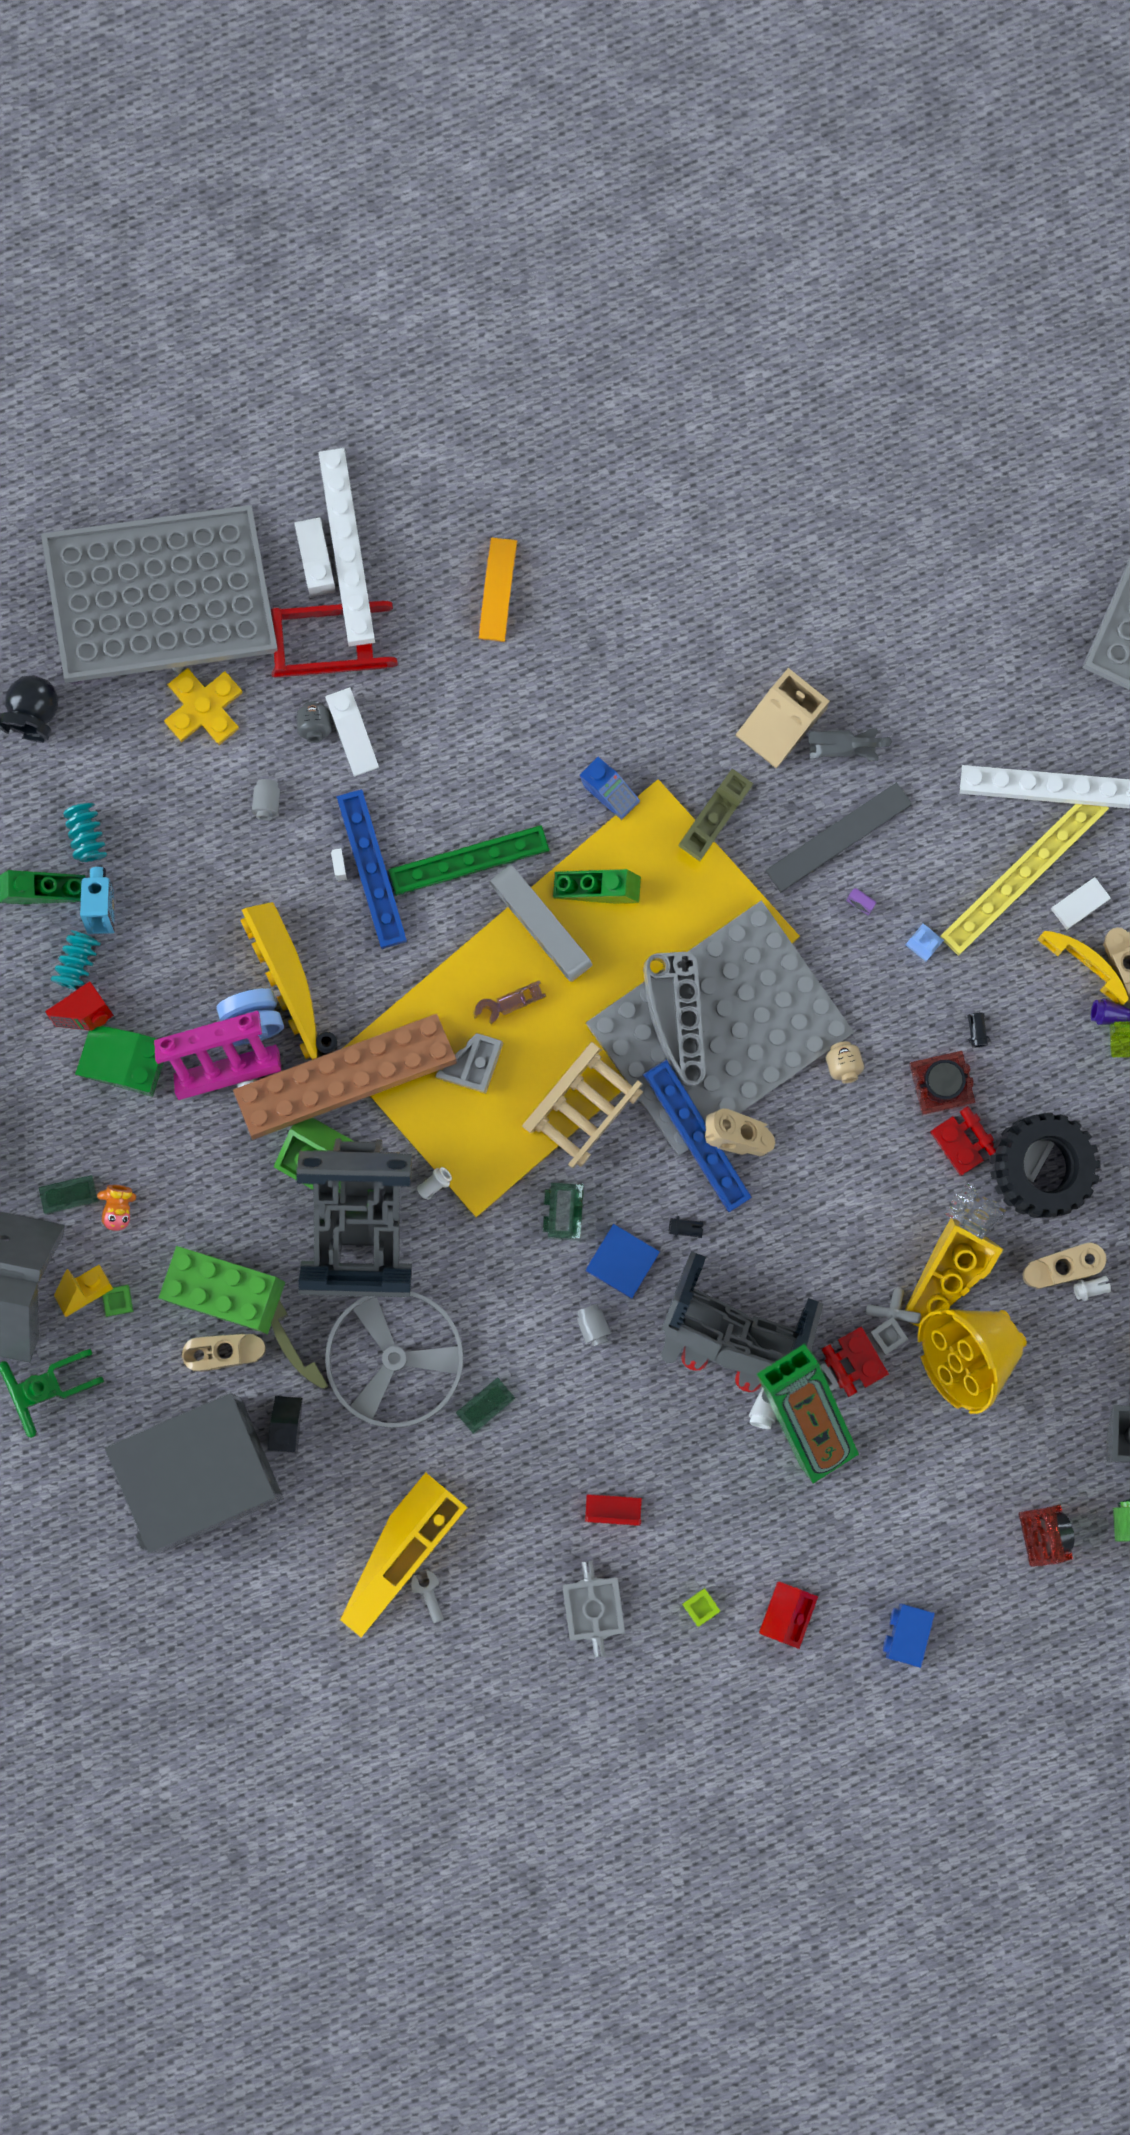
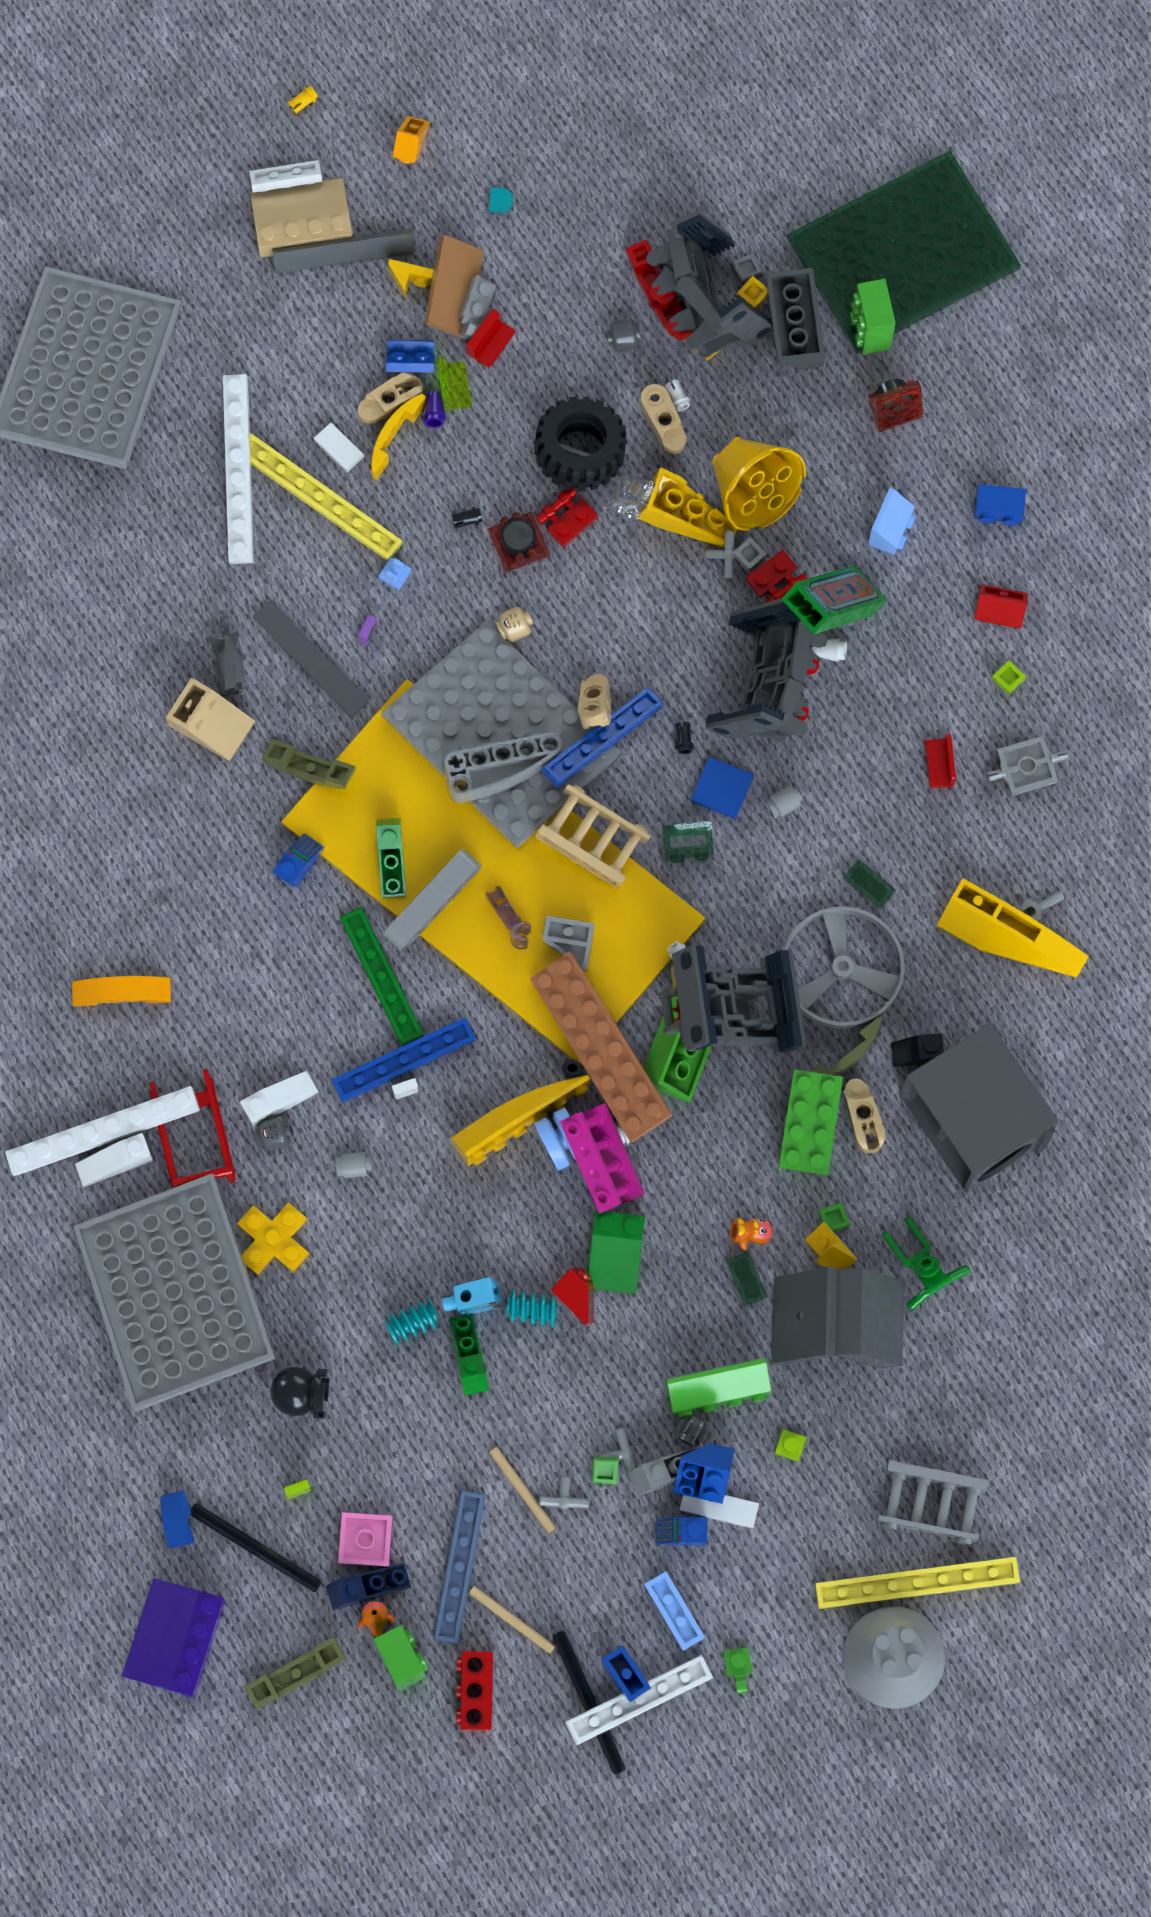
camera: 95 degrees left, 5 degrees down
(902, 1505) = (892, 522): none -> light blue slope

